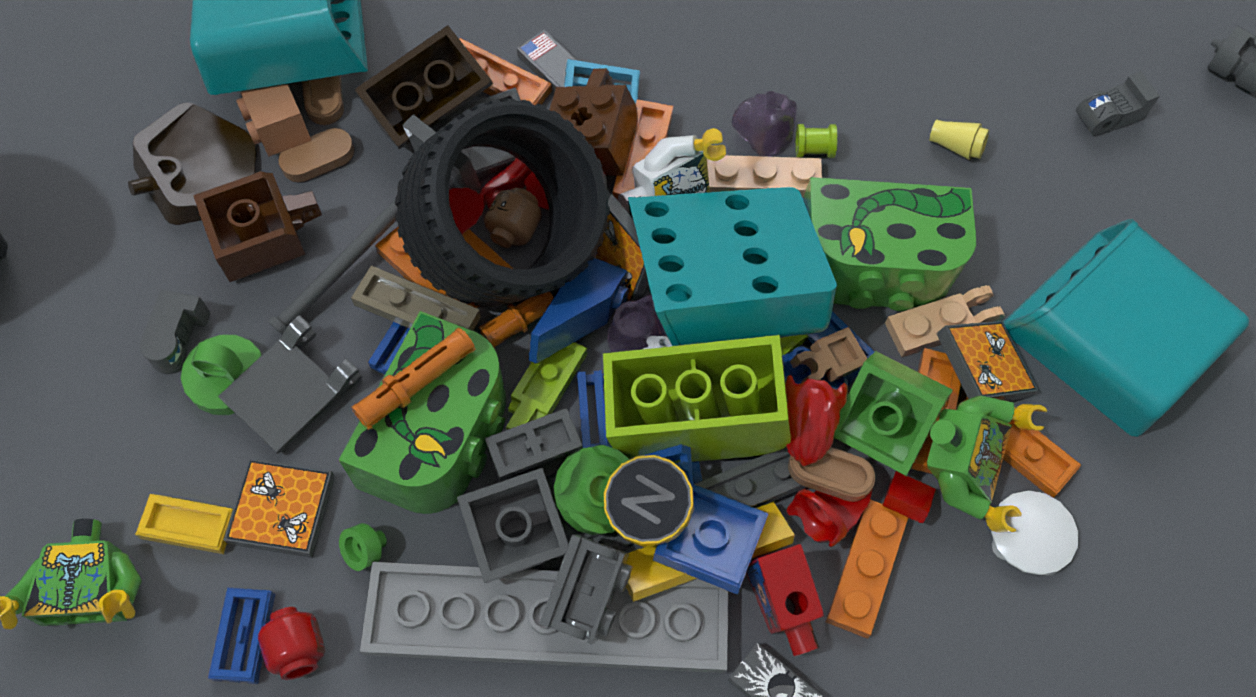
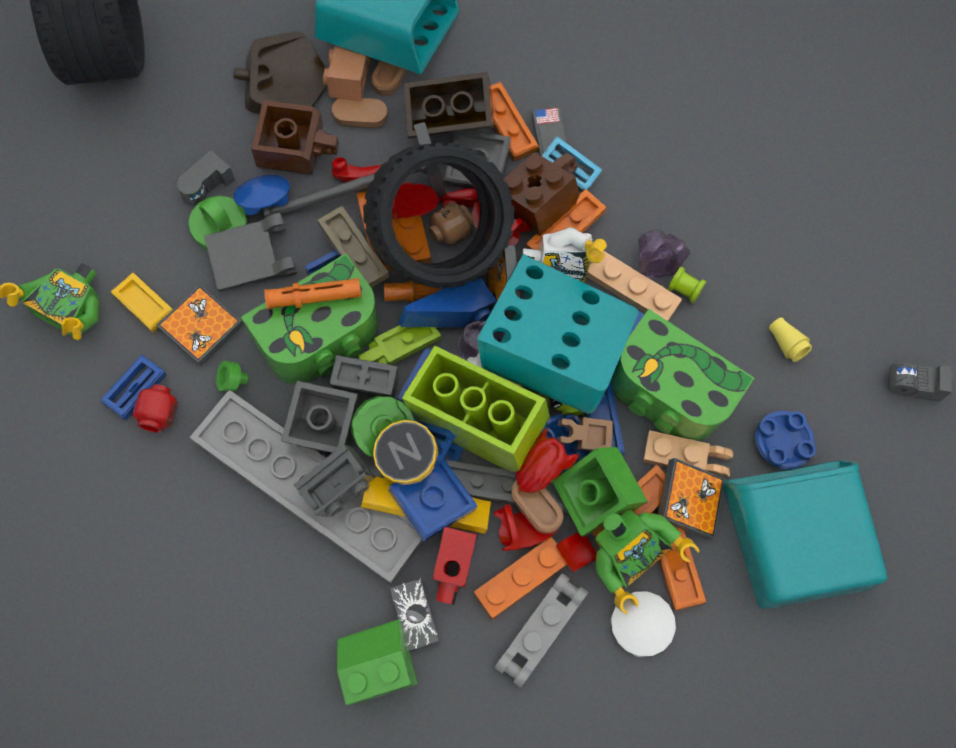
camera: 30 degrees right, 5 degrees up
(258, 307) = (262, 193): none -> blue dish
(348, 229) = (347, 172): none -> red arm
(932, 614) = (541, 630): none -> light grey plate
(1032, 242) = (785, 439): none -> blue dish

